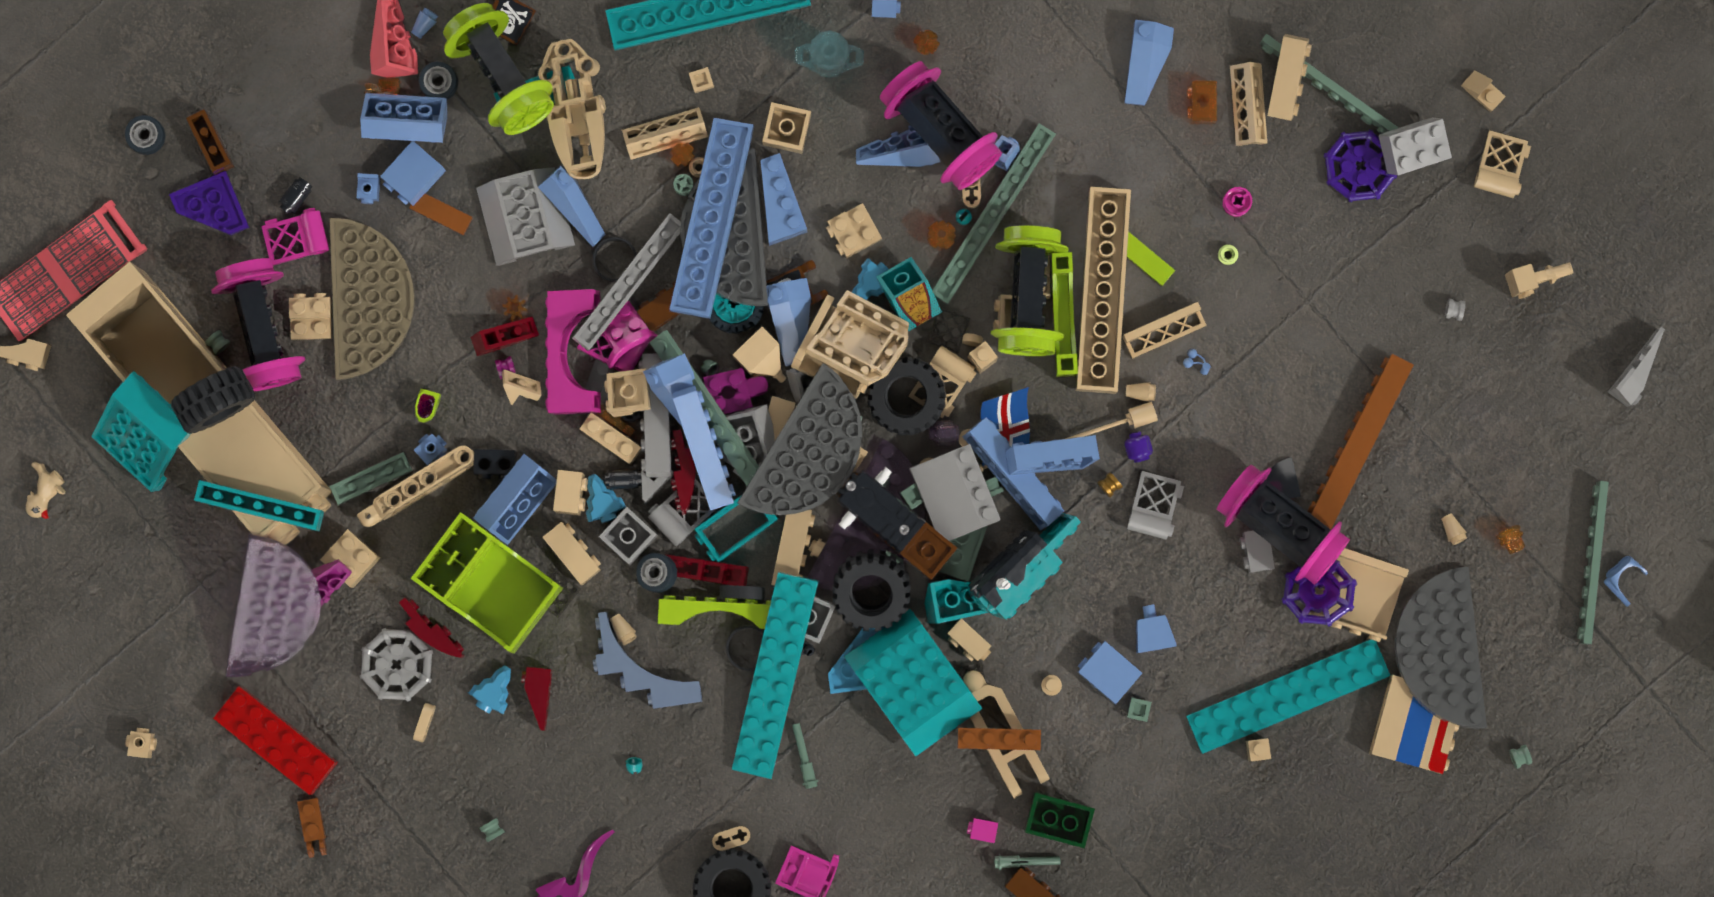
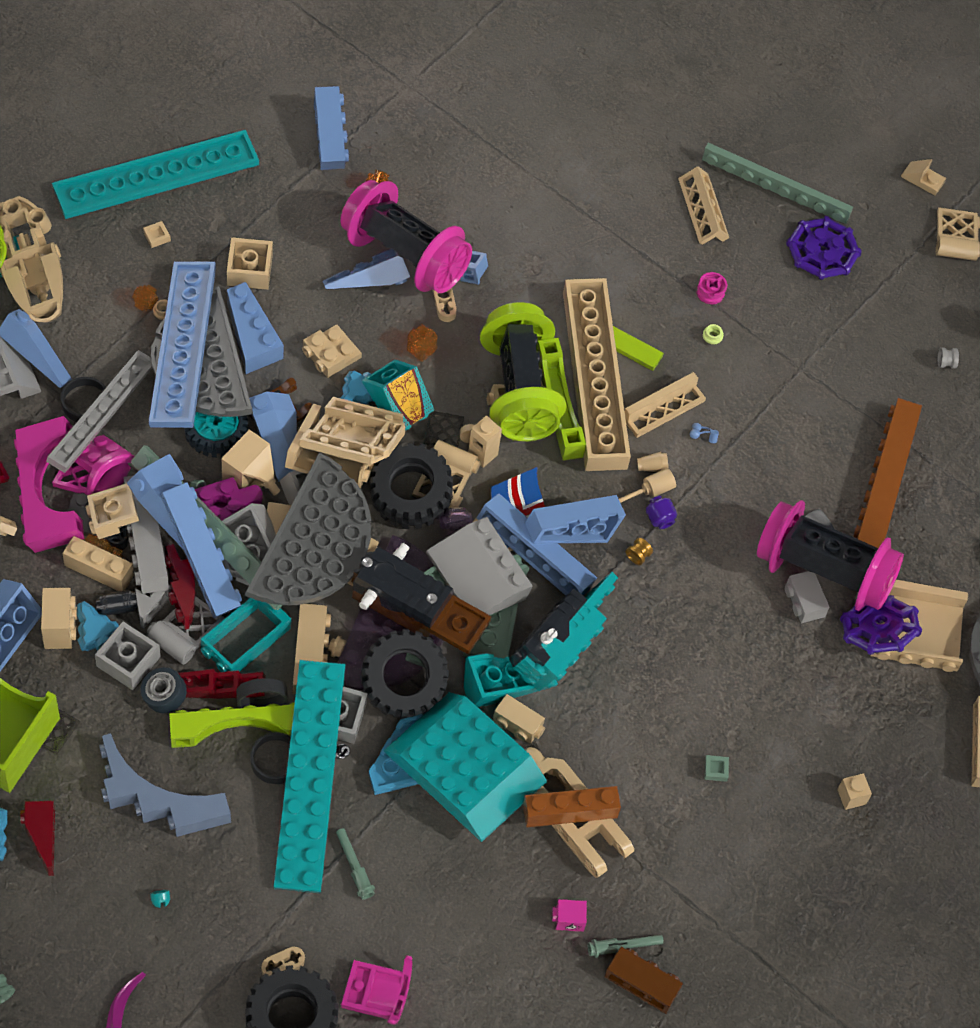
camera: 15 degrees left, 25 degrees down
(572, 552) = (66, 682): tan brick -> none
(622, 629) = (132, 755): tan cone -> none
(658, 312) = (142, 434): reddish brown brick -> none
(665, 136) = (124, 283): tan fence -> none
(683, 181) = (147, 320): sand green wheel -> none
(829, 55) = (283, 195): clear light blue container -> none
(966, 220) = (445, 329): teal hinge -> none
(993, 213) = (471, 321): sand green plate -> none
(1051, 685) = (616, 755): tan plate -> none
(1059, 820) = (654, 891): dark green brick -> none
(1109, 672) = (676, 733): medium blue brick -> none
(1148, 53) = (597, 176): medium blue wedge -> none
(1149, 521) = (688, 580): light grey piece -> none
(1153, 631) = (716, 688): medium blue torso -> none
(1208, 92) = (659, 207): clear orange brick -> none
(1288, 77) = (738, 173): tan brick -> none
(1288, 696) = (870, 737): teal plate -> none
(1415, 146) = (873, 218): light grey brick -> none

